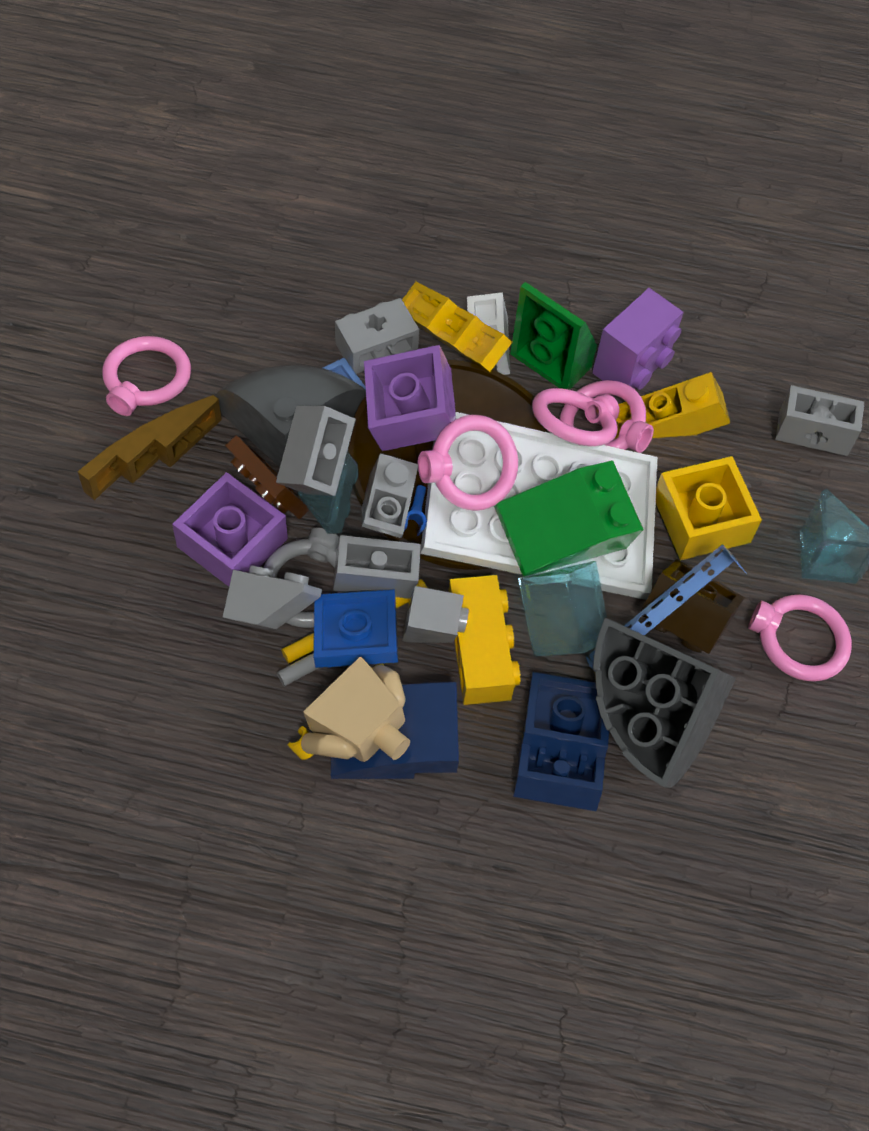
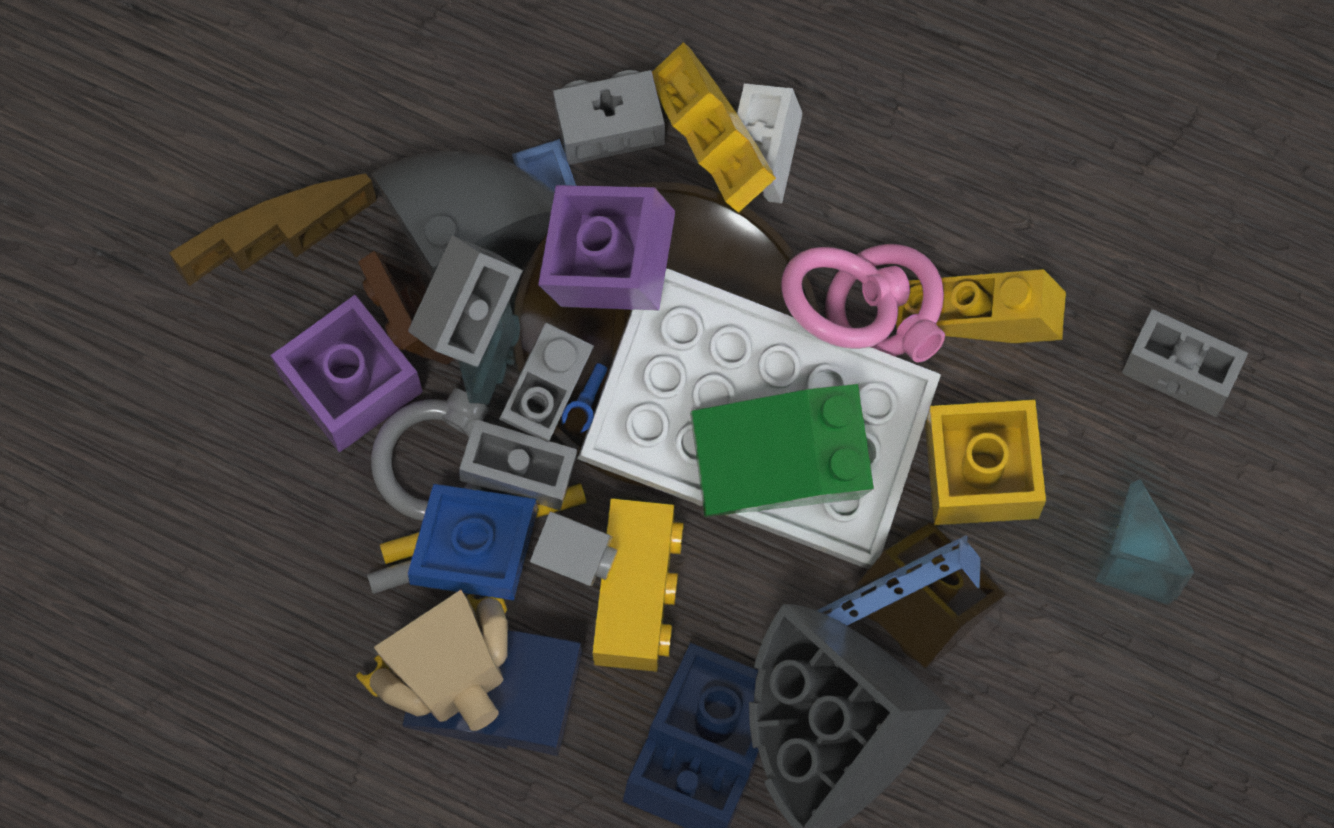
camera: 20 degrees right, 10 degrees up
(125, 396) = (256, 148): bright pink piece -> none
(267, 600) = (369, 479): light grey slope -> none
(436, 465) = (616, 354): bright pink piece -> none
(551, 339) = (843, 174): green slope -> none
(563, 609) = (752, 568): clear light blue slope -> none
(638, 341) = (961, 199): medium lavender brick -> none
(767, 619) = (1022, 635): bright pink piece -> none

